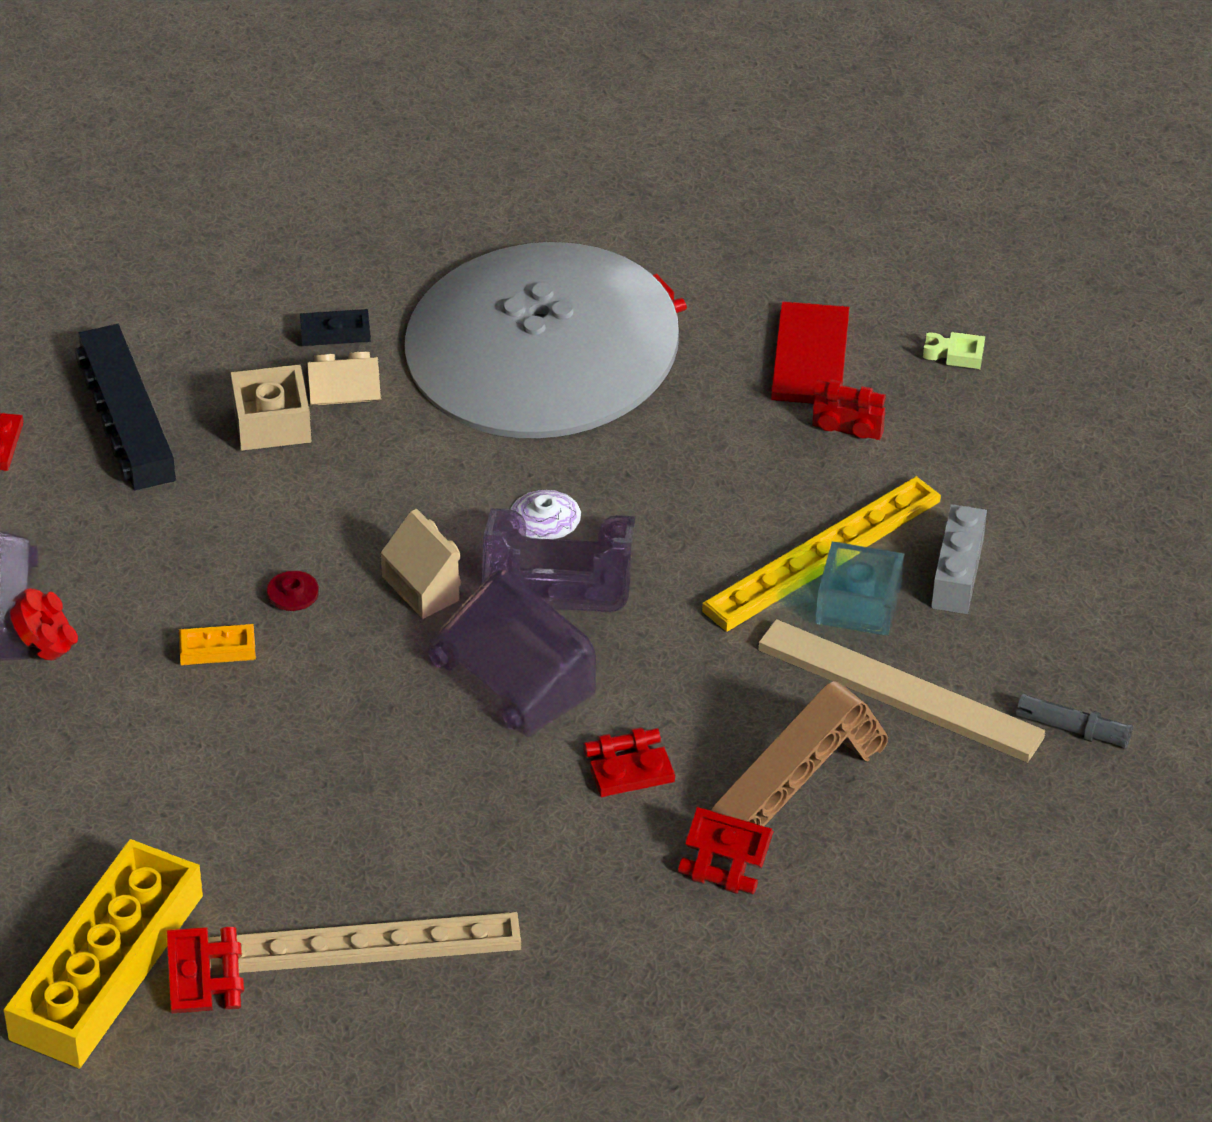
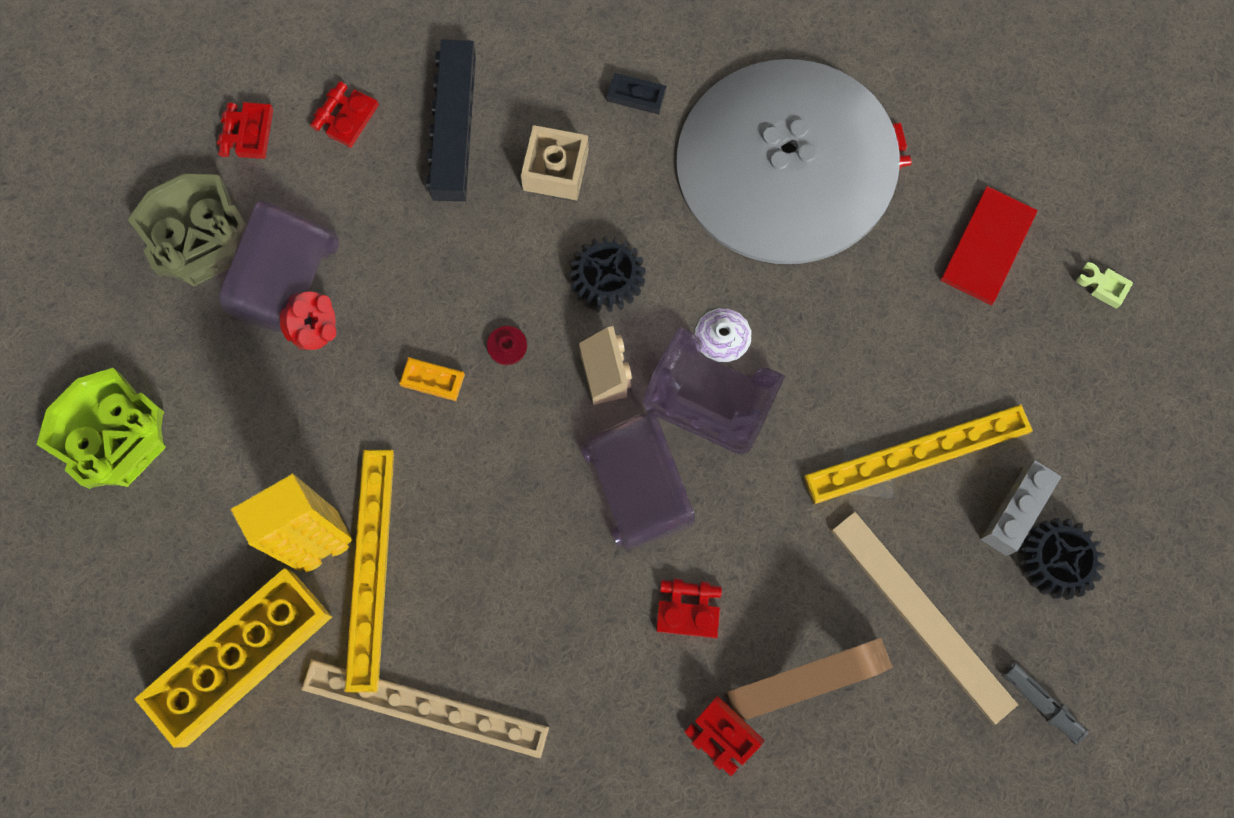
camera: 20 degrees right, 30 degrees up
(140, 751) = (293, 524): none -> yellow brick
(190, 969) = (290, 696): red plate -> none
(229, 837) = (370, 572): none -> yellow tile
(343, 380) = (620, 151): tan slope -> none
(380, 491) = (590, 260): none -> black gear
(849, 409) = (1001, 331): red plate -> none
(859, 588) = (930, 512): clear light blue brick -> none
(1028, 596) = (1076, 583): none -> black gear

